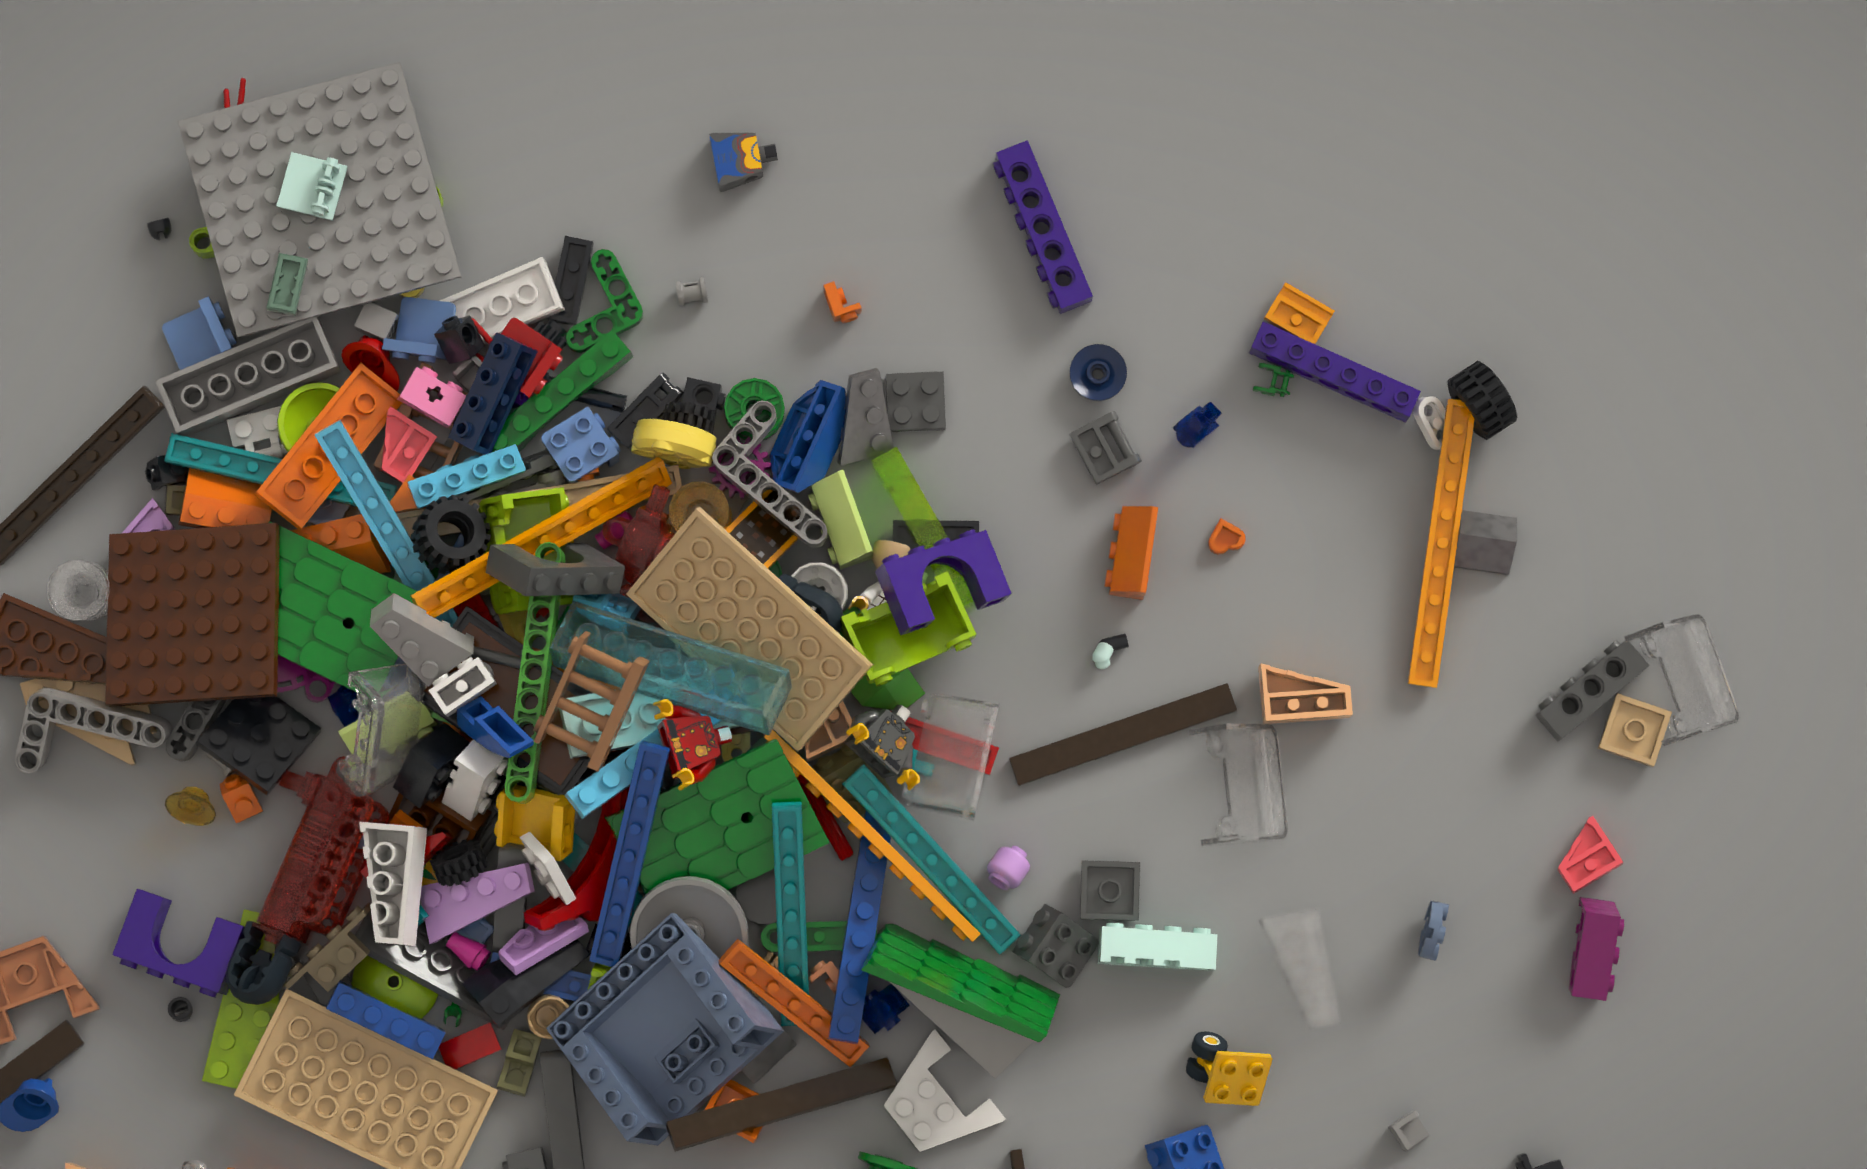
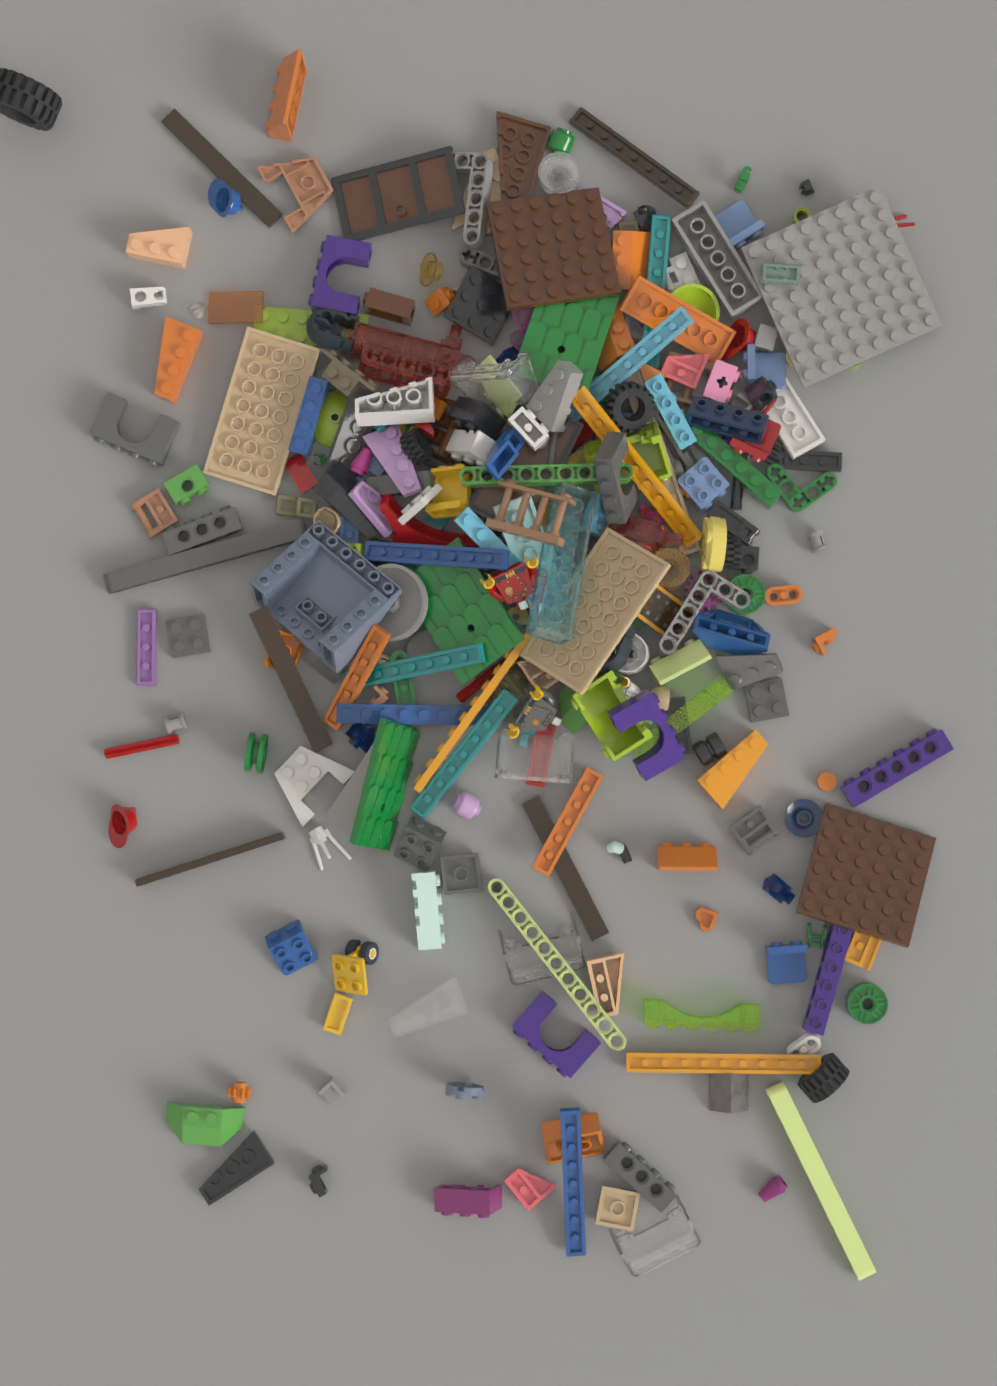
camera: 85 degrees right, 5 degrees up
(28, 581) = (561, 140): none -> green head
(69, 837) = (398, 194): none -> door
(132, 320) = (742, 180): none -> green piece
(179, 1004) = (301, 282): black hinge -> none
(199, 1111) = (235, 307): none -> clear orange piece
(238, 875) = (389, 306): none -> reddish brown window
(312, 185) = (849, 280): light aqua hinge -> none
(739, 158) = (911, 559): torso -> none
(764, 354) = (782, 595): none -> orange plate
(976, 495) = (709, 749): none -> black wheel
(1013, 470) = (730, 770): none -> light orange wedge
(1025, 1096) = (318, 837): none -> white plant
(1048, 331) = (826, 781): none -> orange tile
(1054, 720) = (567, 821): none -> orange plate
(1195, 294) = (866, 875): none -> reddish brown plate
(1249, 769) = (549, 957): none -> yellowish green beam
(1293, 1105) = (337, 1013): none -> yellow plate
(1306, 429) = (786, 962): none -> blue bracket
(1376, 505) = (743, 1015): none -> clear neon green arch
(1384, 304) = (875, 1011): none -> green wheel
(1407, 771) = (567, 1059): none -> dark purple arch
(1523, 780) = (591, 1137): none -> orange slope
(1587, 788) = (572, 1181): none -> blue plate
(1631, 427) = (820, 1180): none -> yellowish green beam
(1634, 498) = (773, 1188): none -> magenta cone

